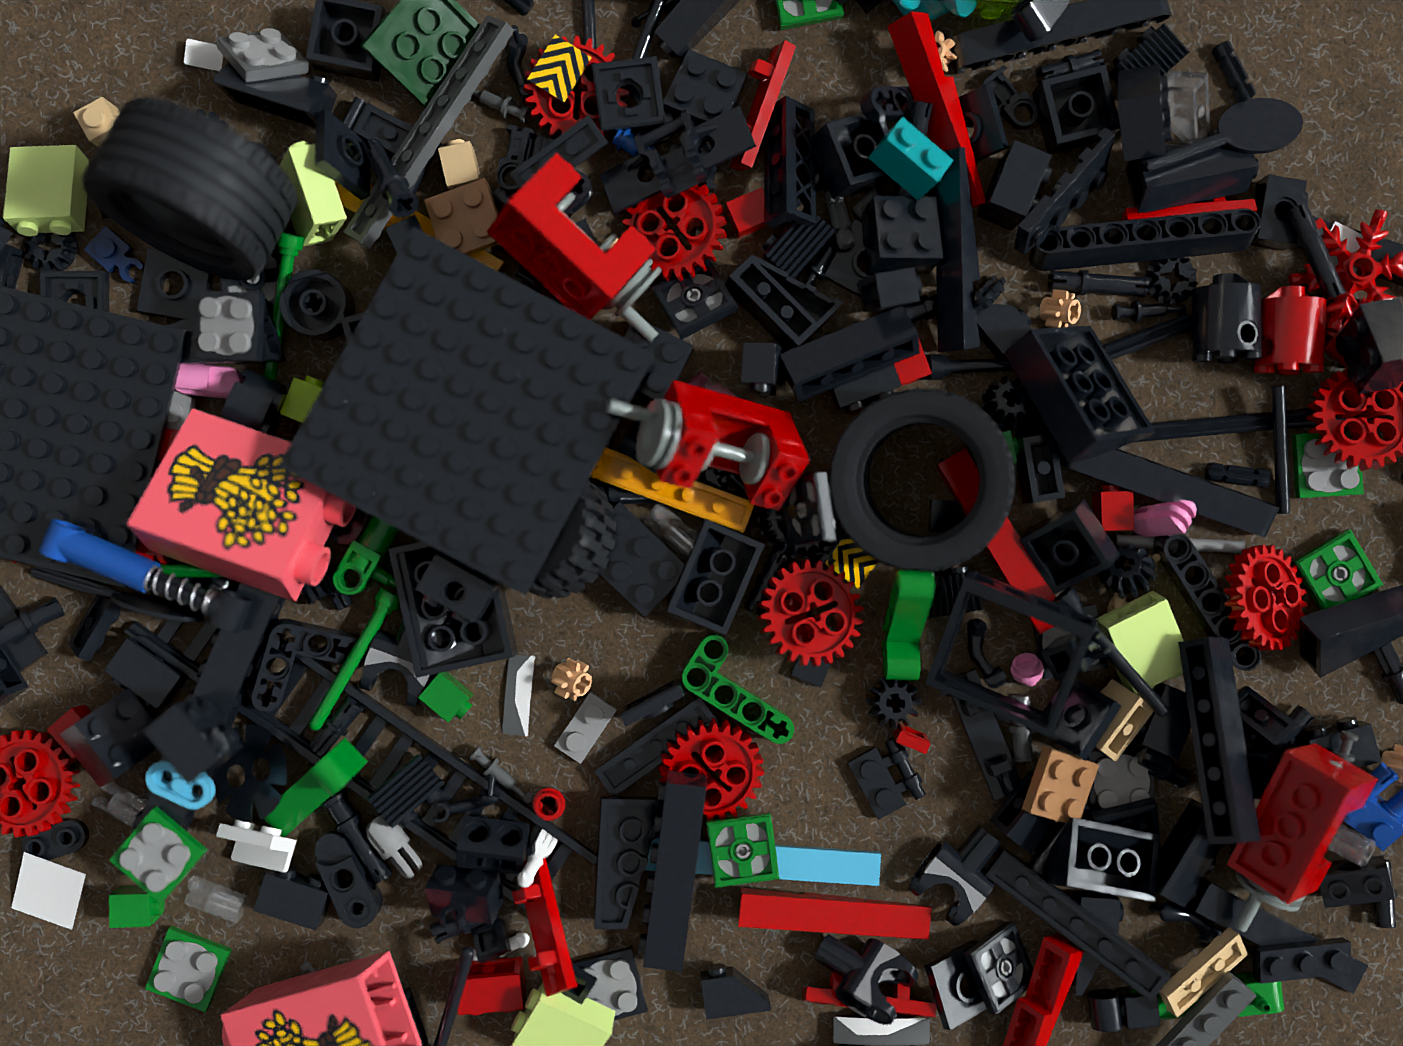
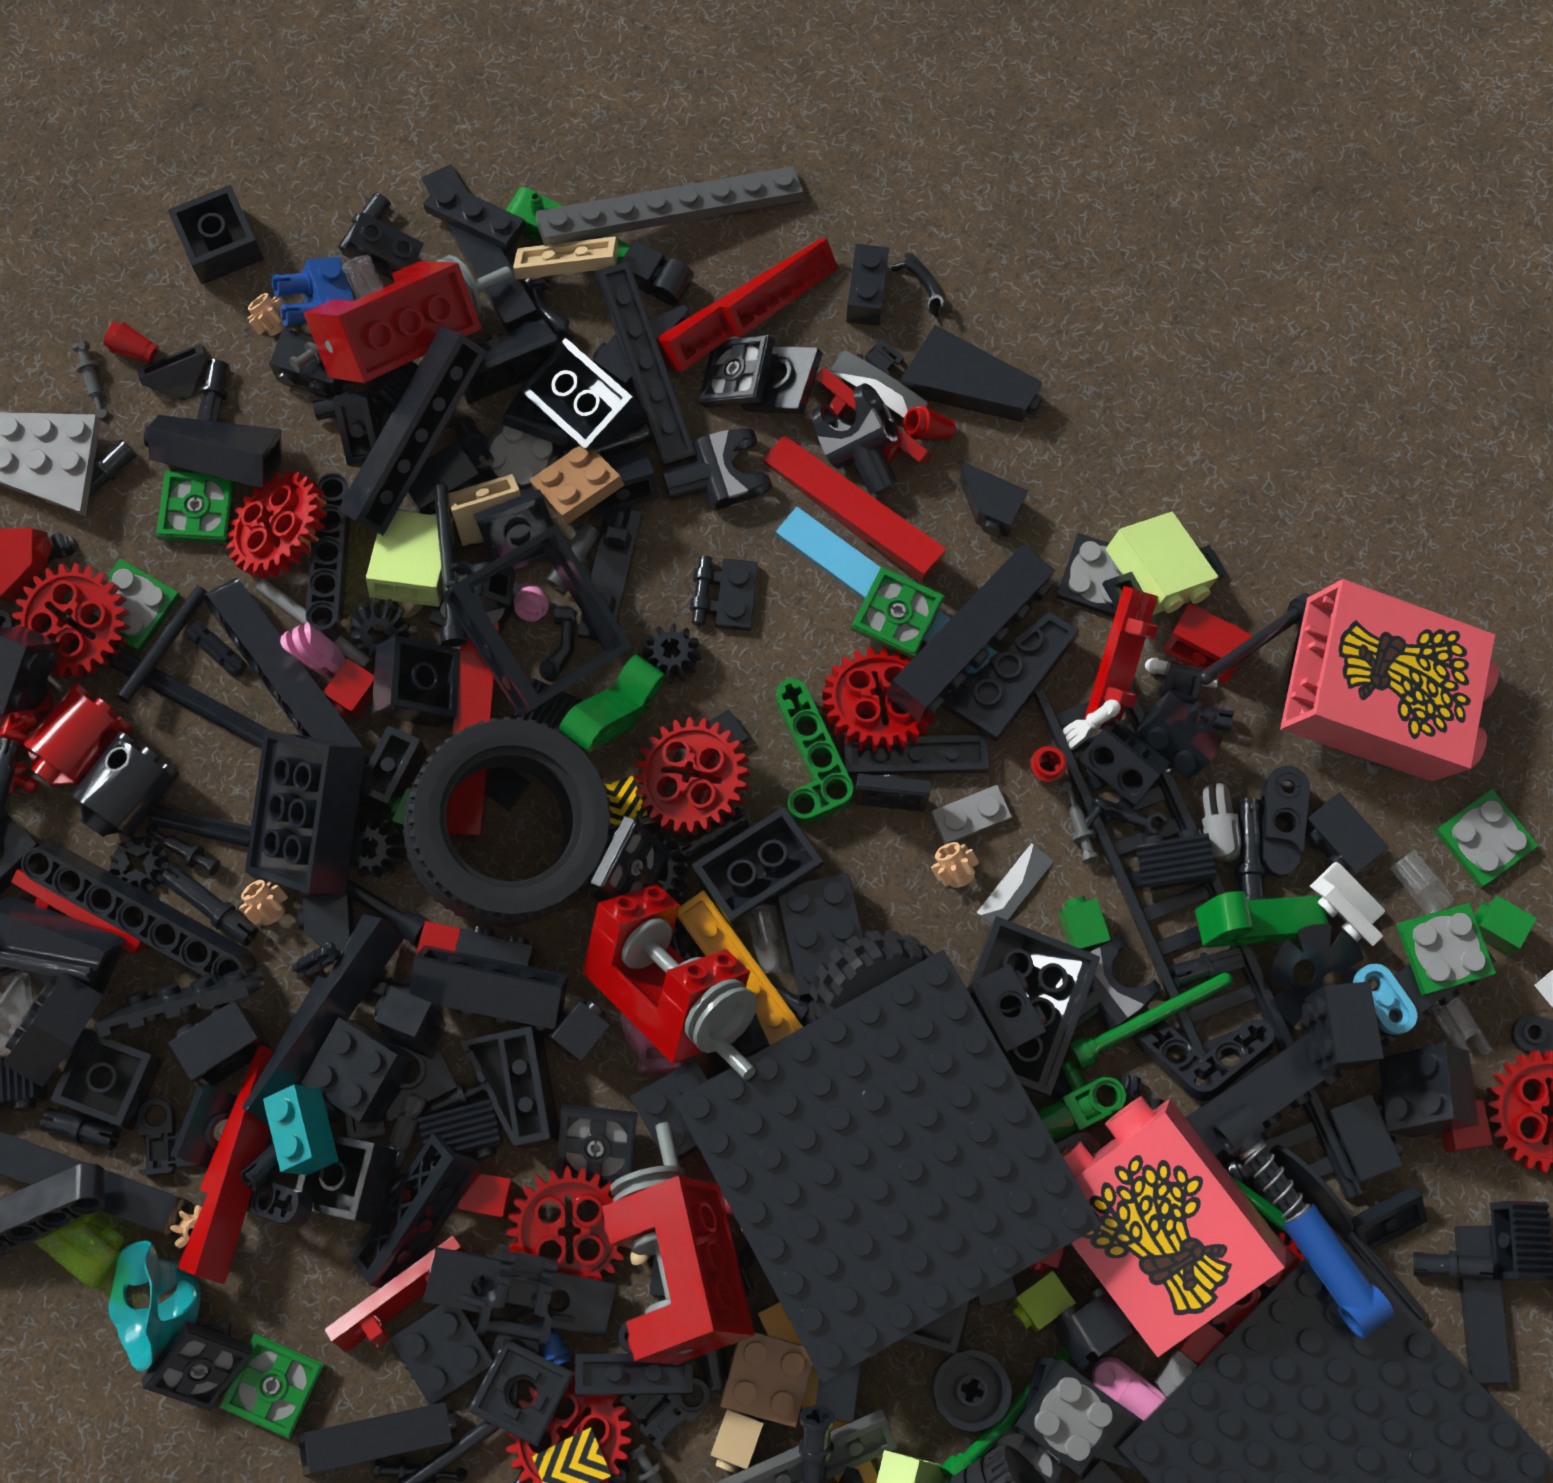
camera: 150 degrees left, 15 degrees down
(821, 1023) = (926, 424): none -> red cone
(911, 738) = (677, 610): red tile -> none

